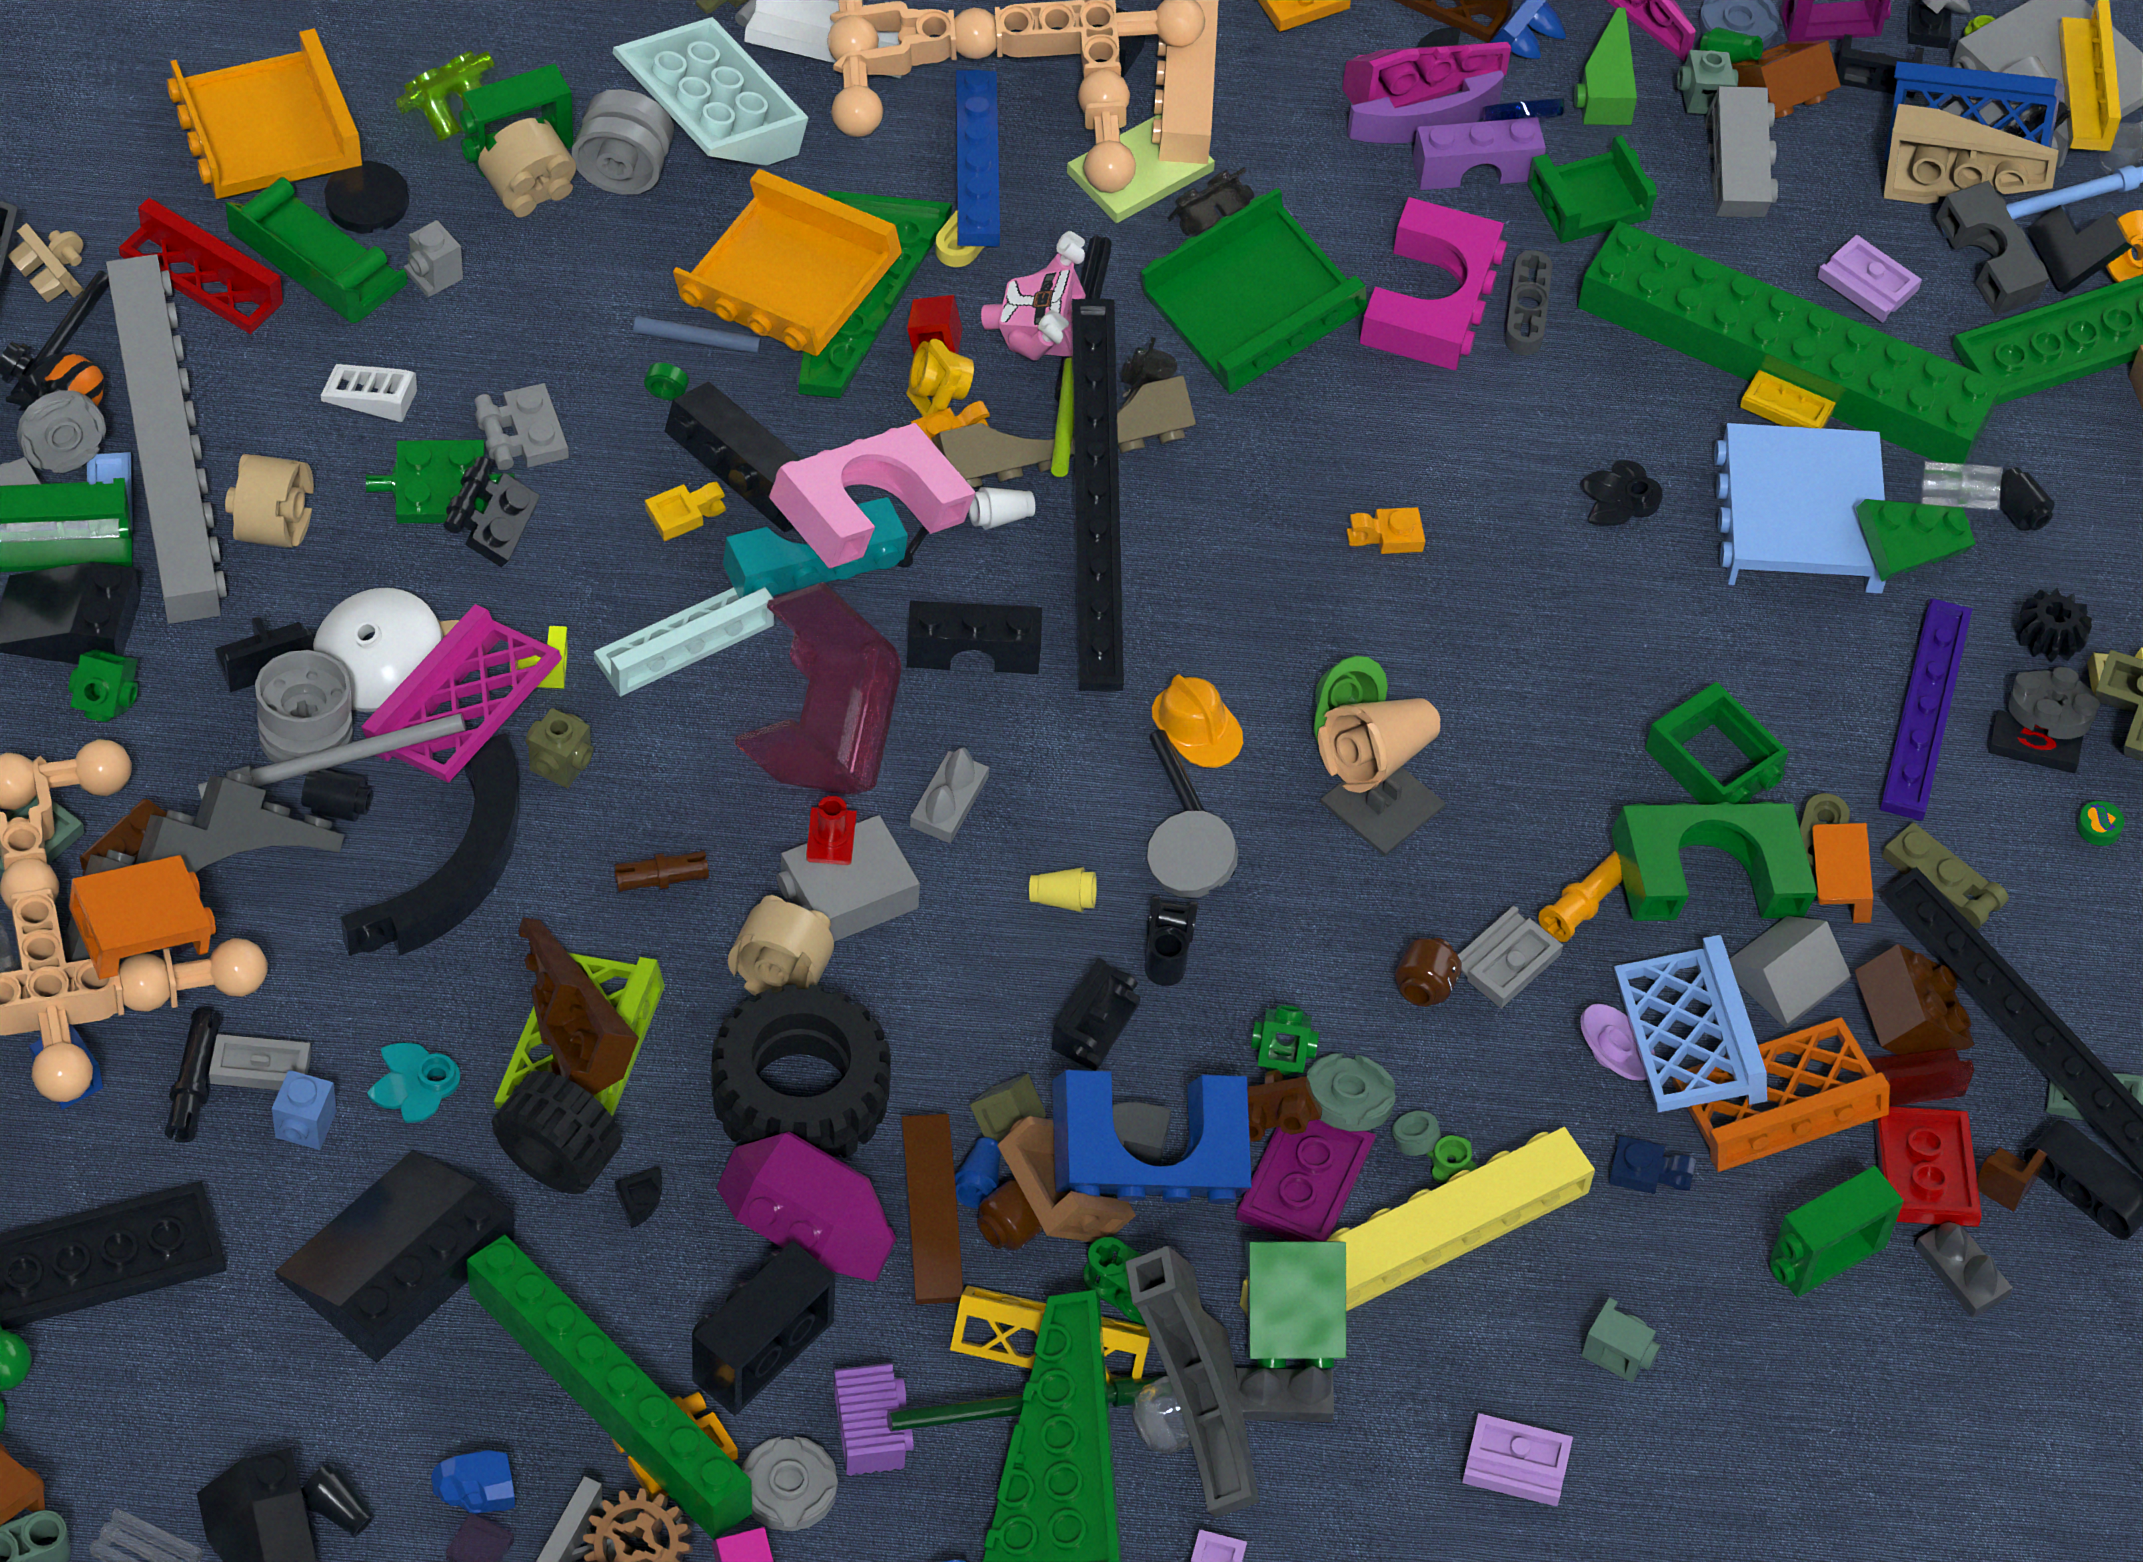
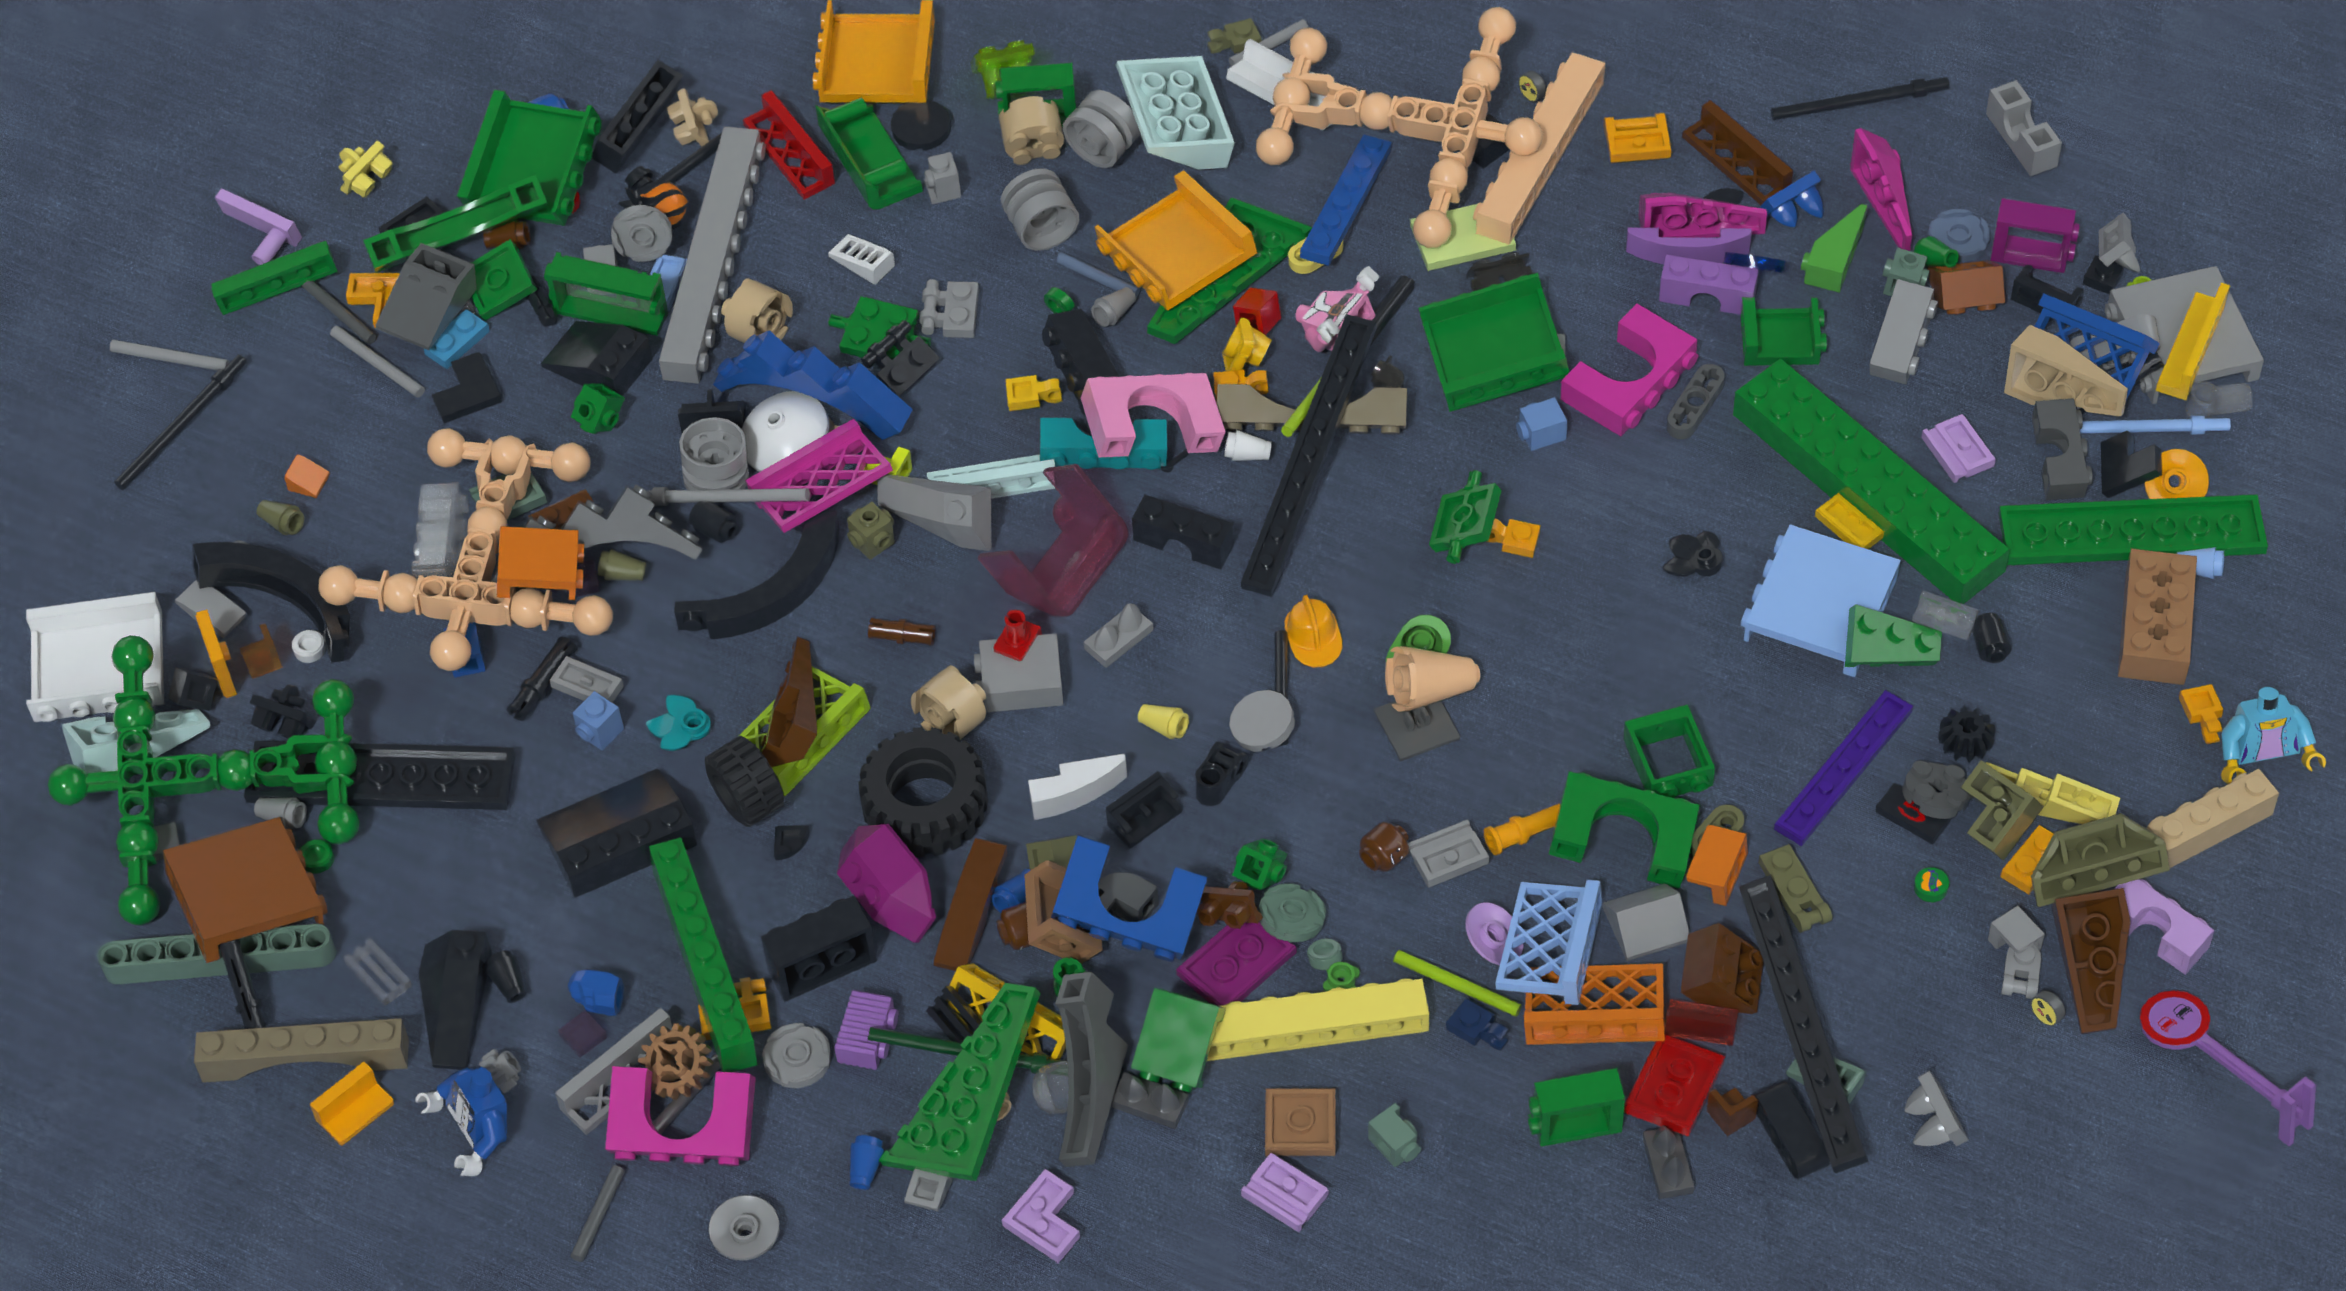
camera: 30 degrees right, 0 degrees up
(234, 891) = (619, 566): none -> olive cone
(454, 567) = (813, 374): none -> blue arch
(590, 266) = (1039, 209): none -> light grey wheel
(650, 692) = (944, 508): none -> light grey wedge
(738, 371) = (1111, 307): none -> light grey cone
(954, 1350) = (944, 1023): none -> black tile
(990, 1009) = (1076, 785): none -> white slope
(1325, 521) = (1465, 517): none -> green plate
(1359, 378) = (1542, 424): none -> medium blue brick
(1492, 1361) = (1300, 1122): none -> medium nougat plate
(1596, 1119) = (1457, 983): none -> lime bar

